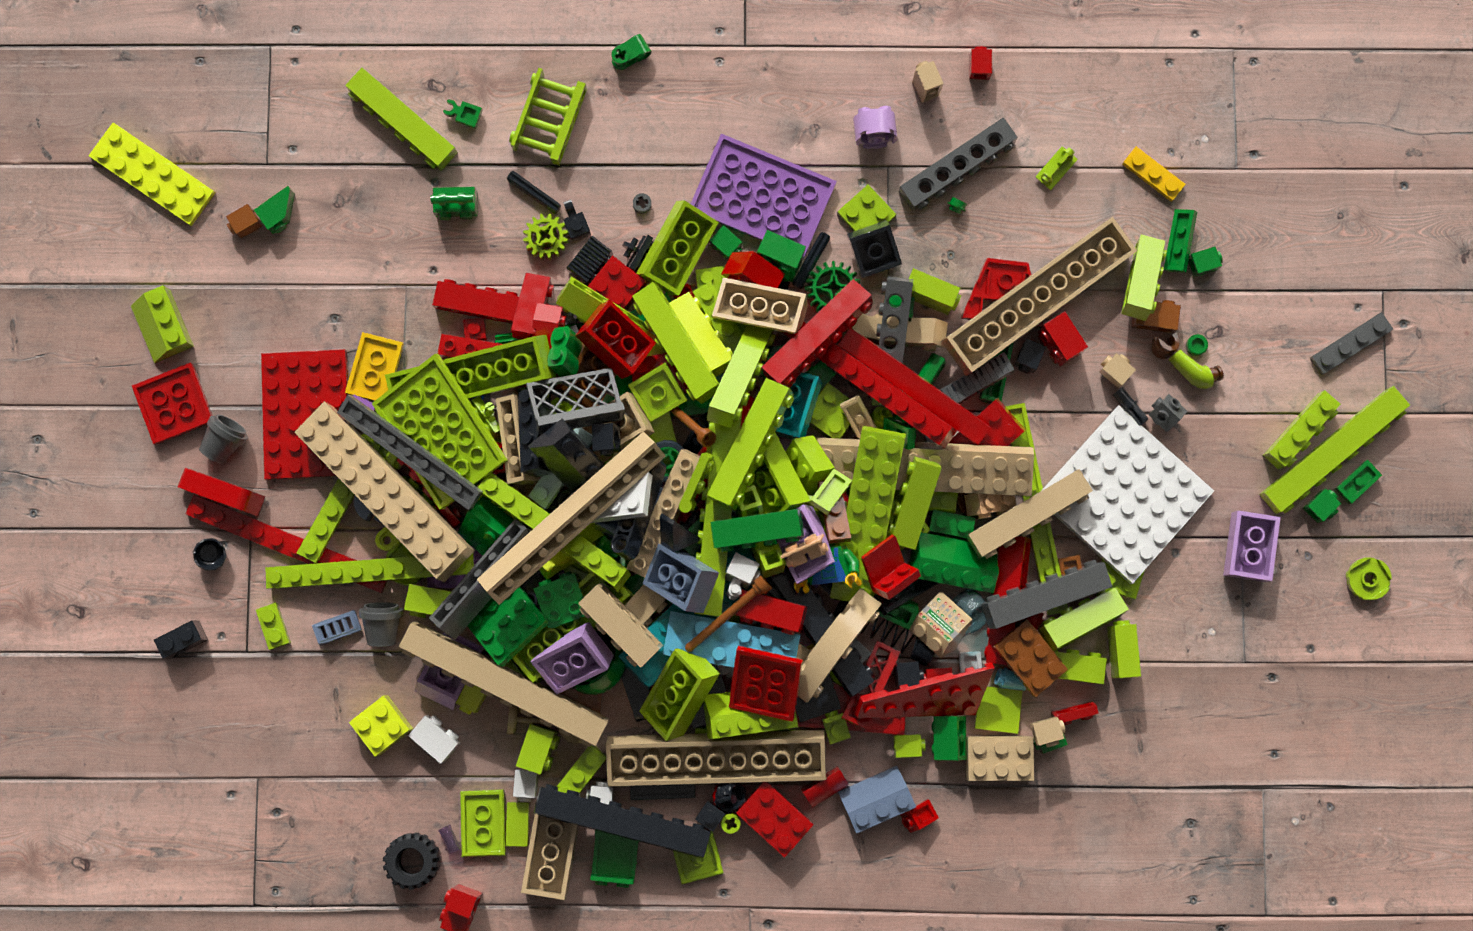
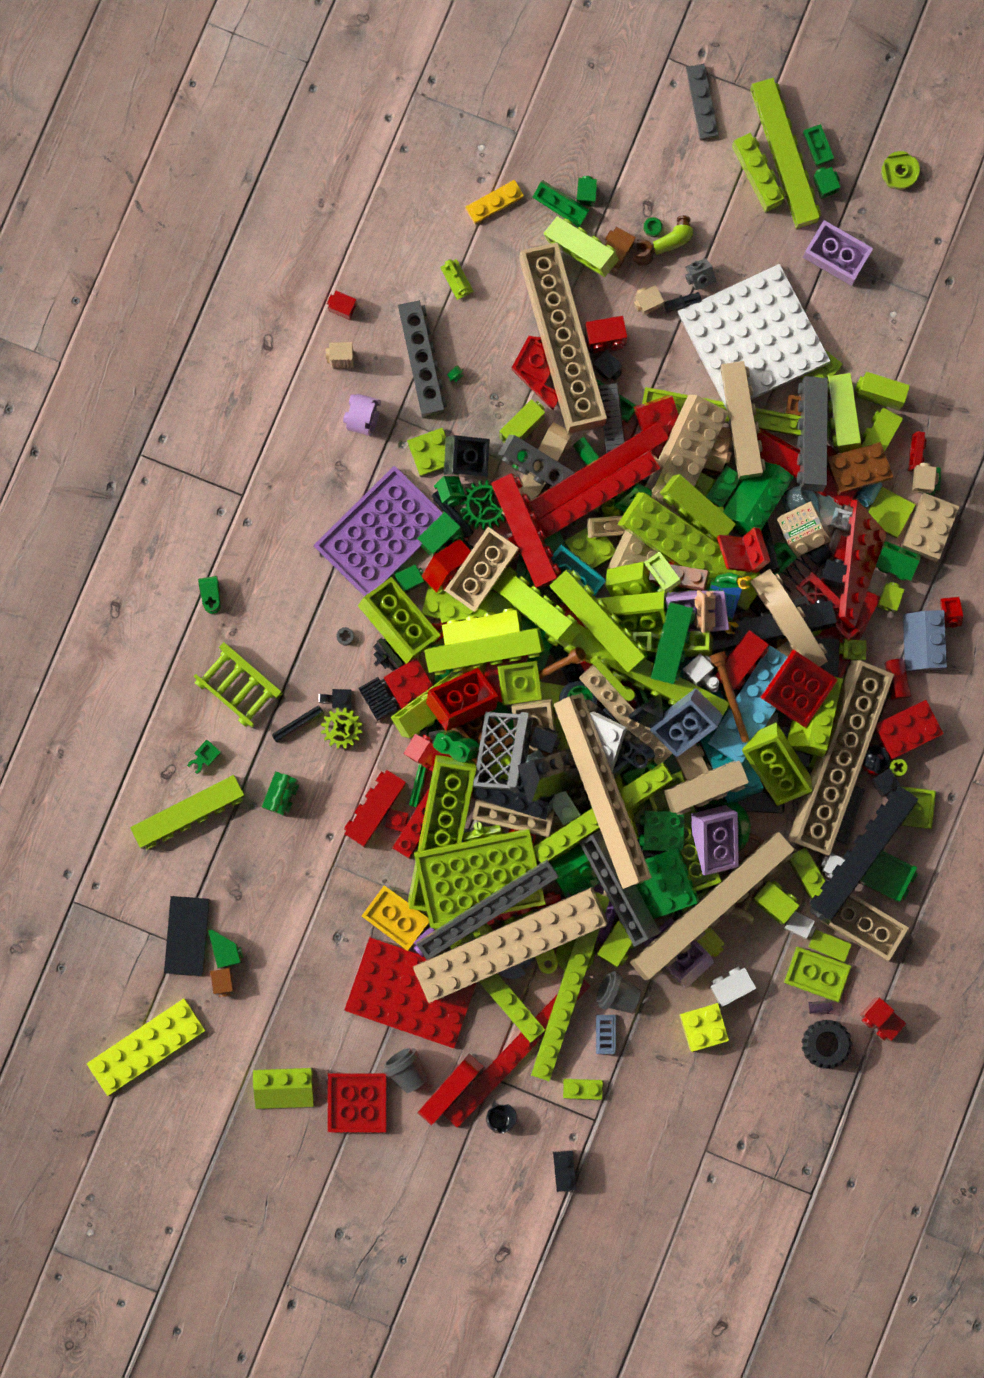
camera: 70 degrees left, 0 degrees up
(277, 168) = (186, 936): none -> black tile
(534, 290) = (395, 761): red brick -> none
(833, 246) = (450, 490): none -> green brick

